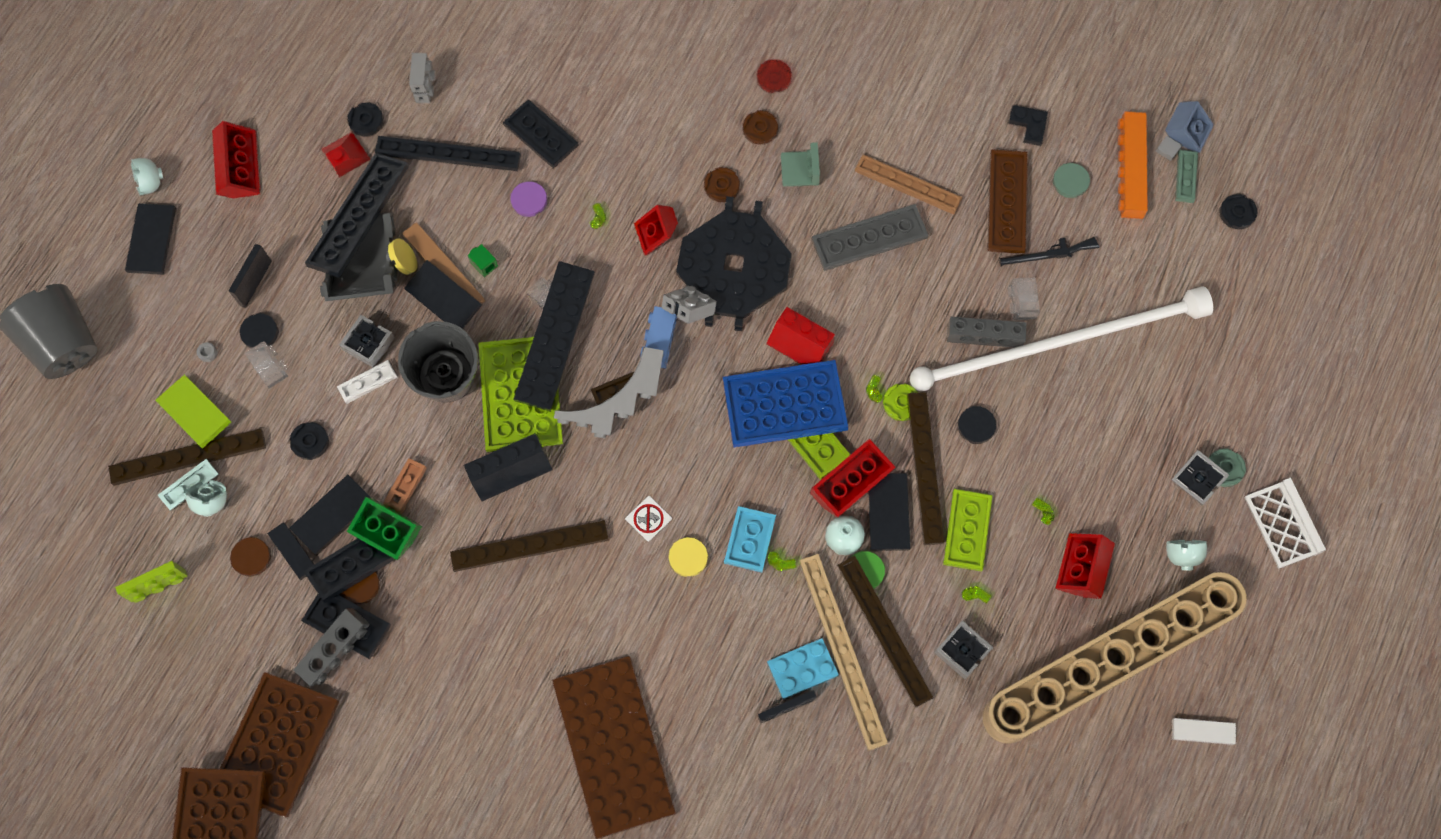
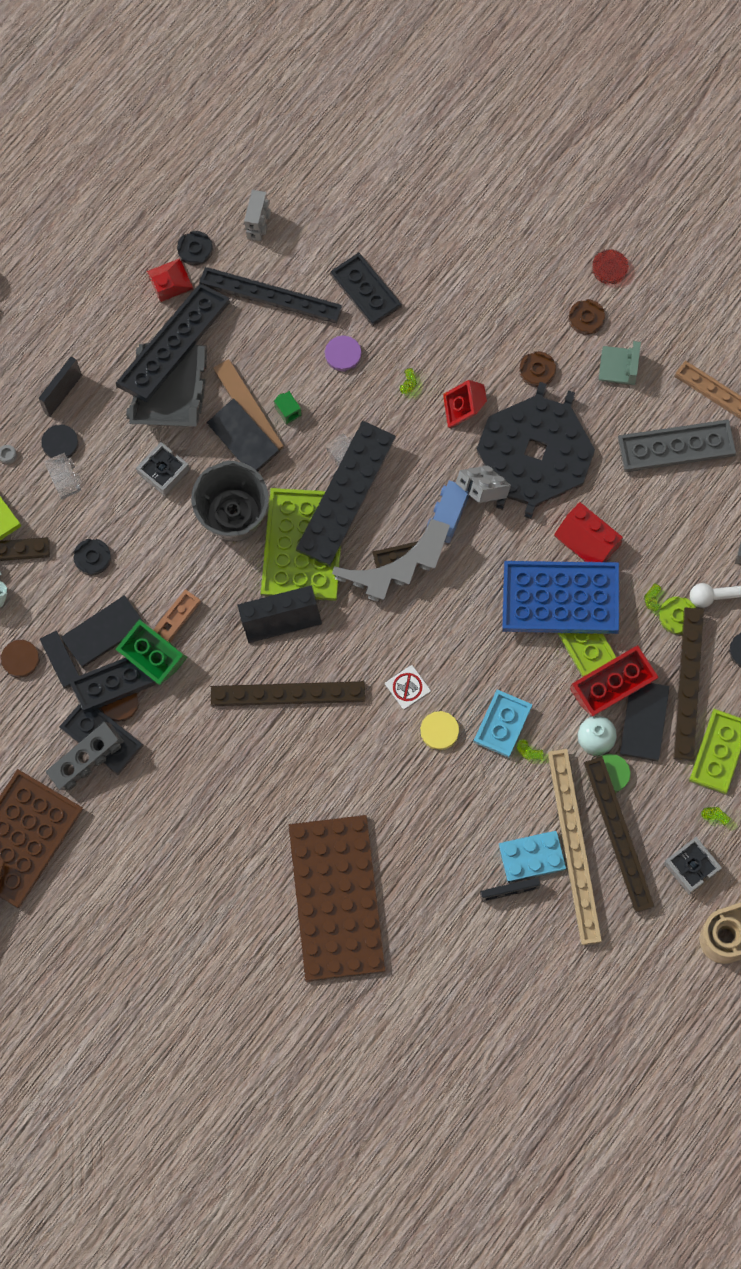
camera: 15 degrees right, 0 degrees up
(235, 160) = (62, 270): red slope -> none
(367, 382) = (156, 508): white tile -> none
(403, 256) = (211, 391): light yellow tile -> none

